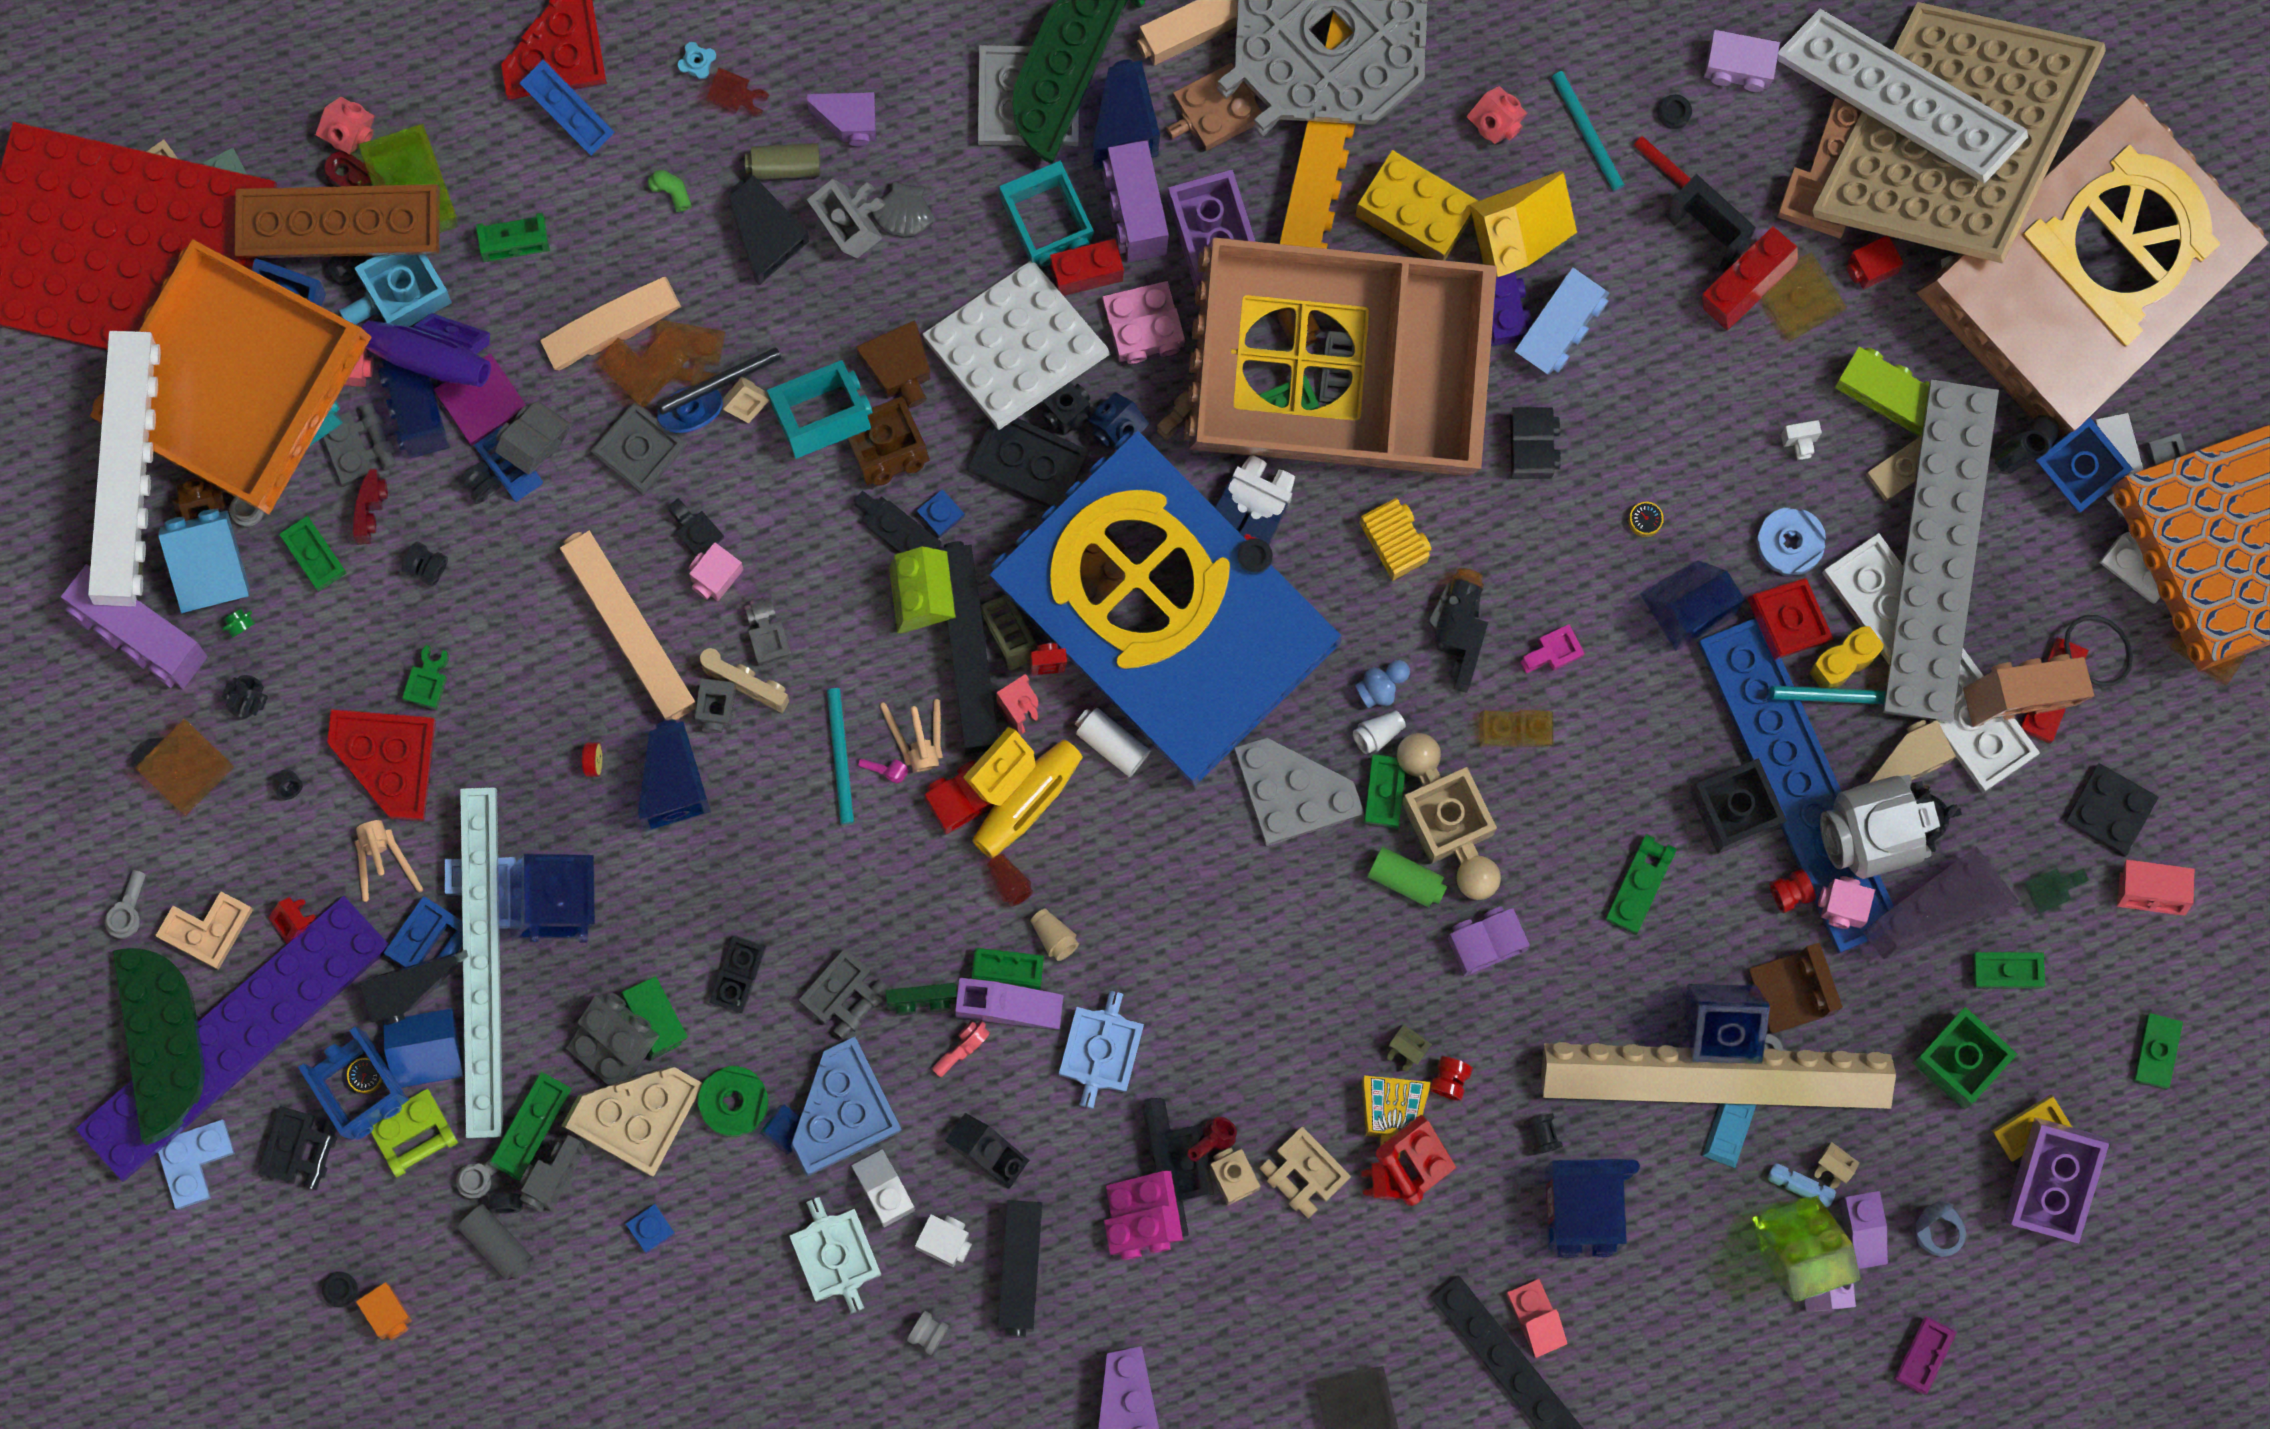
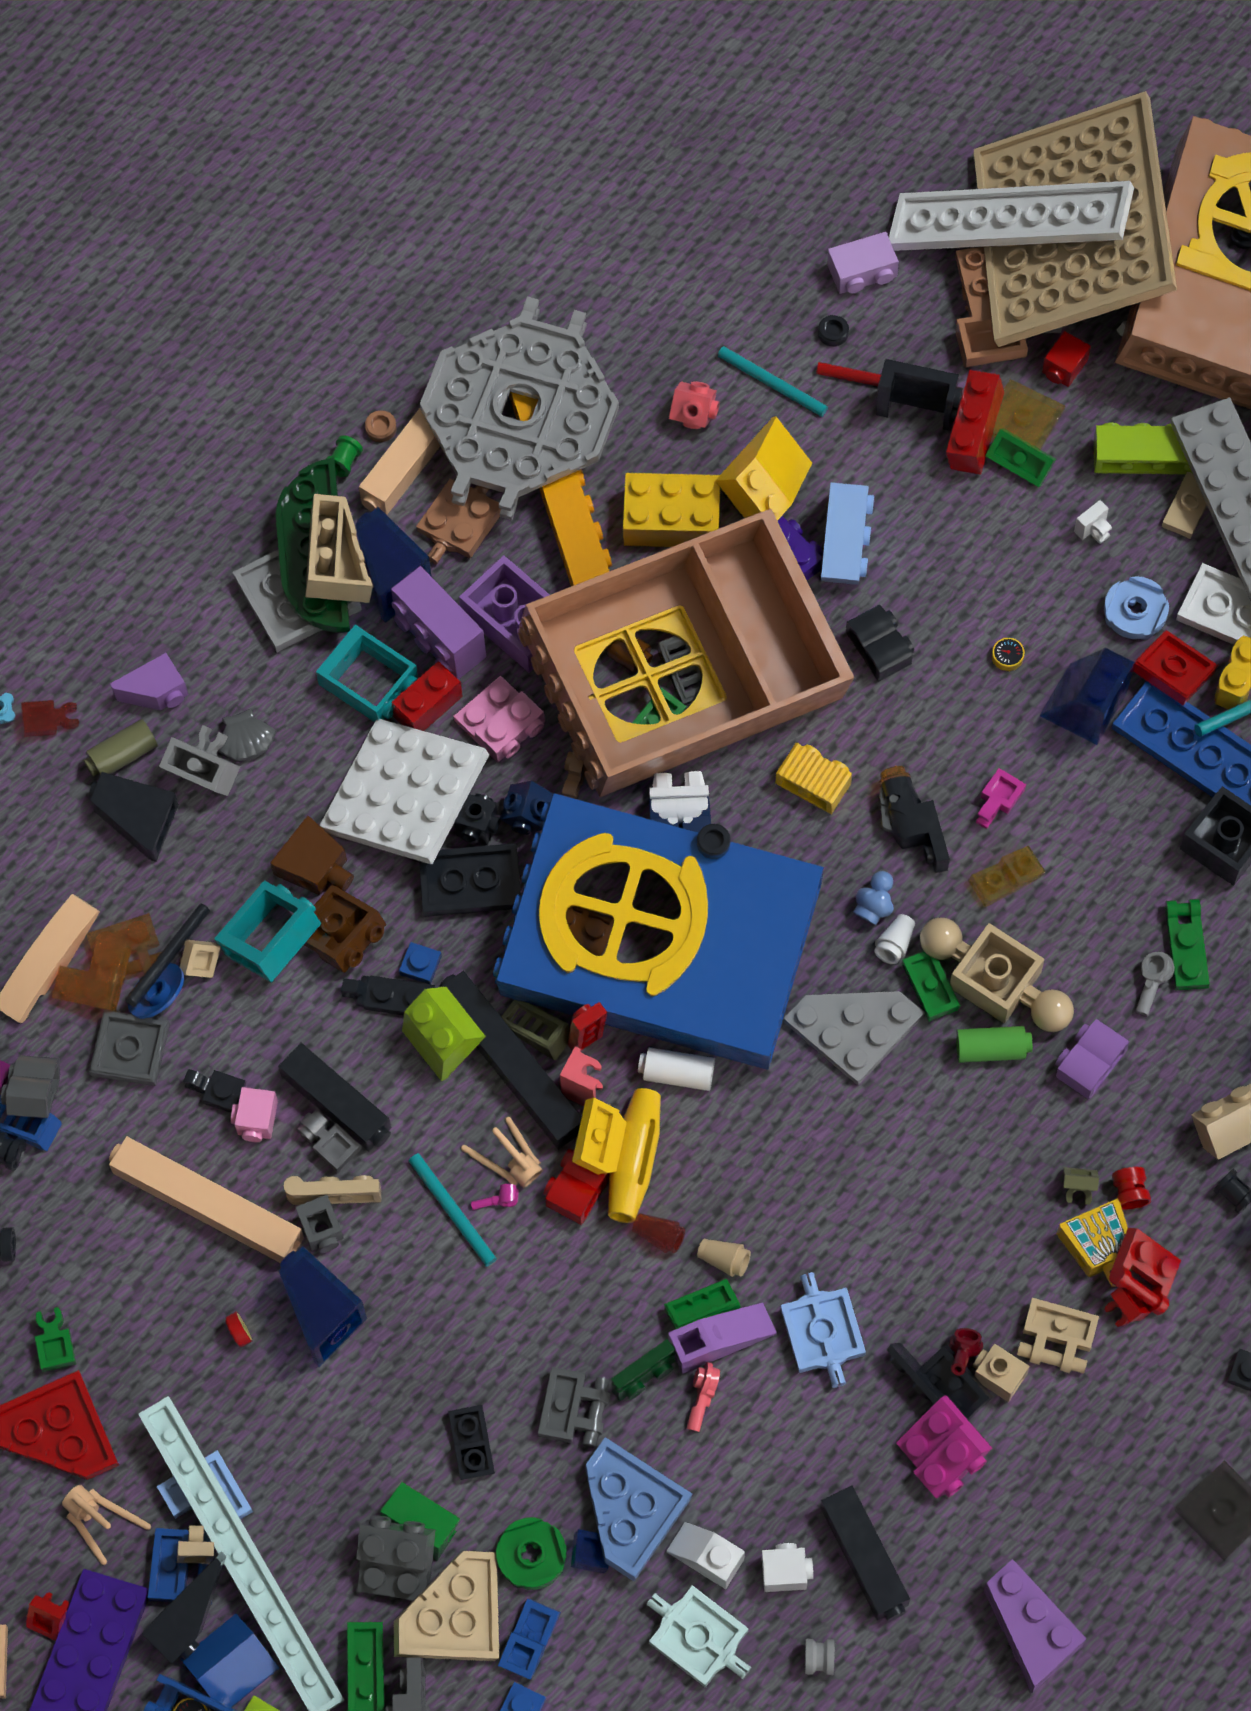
camera: 20 degrees left, 10 degrees down
(445, 935) = (195, 1549): none -> tan tile
(552, 896) = (273, 1461): clear blue container -> none
(673, 185) = (37, 819): bright green arm -> none
(689, 1174) = (529, 1638): none -> blue slope
(794, 597) = (335, 1097): none -> black brick
(987, 1150) = (776, 1469): black slope -> none
(1075, 84) = (334, 555): none -> tan wedge
(1597, 892) = (1156, 969): none -> light grey plate
(1773, 335) = (1020, 457): none -> green plate

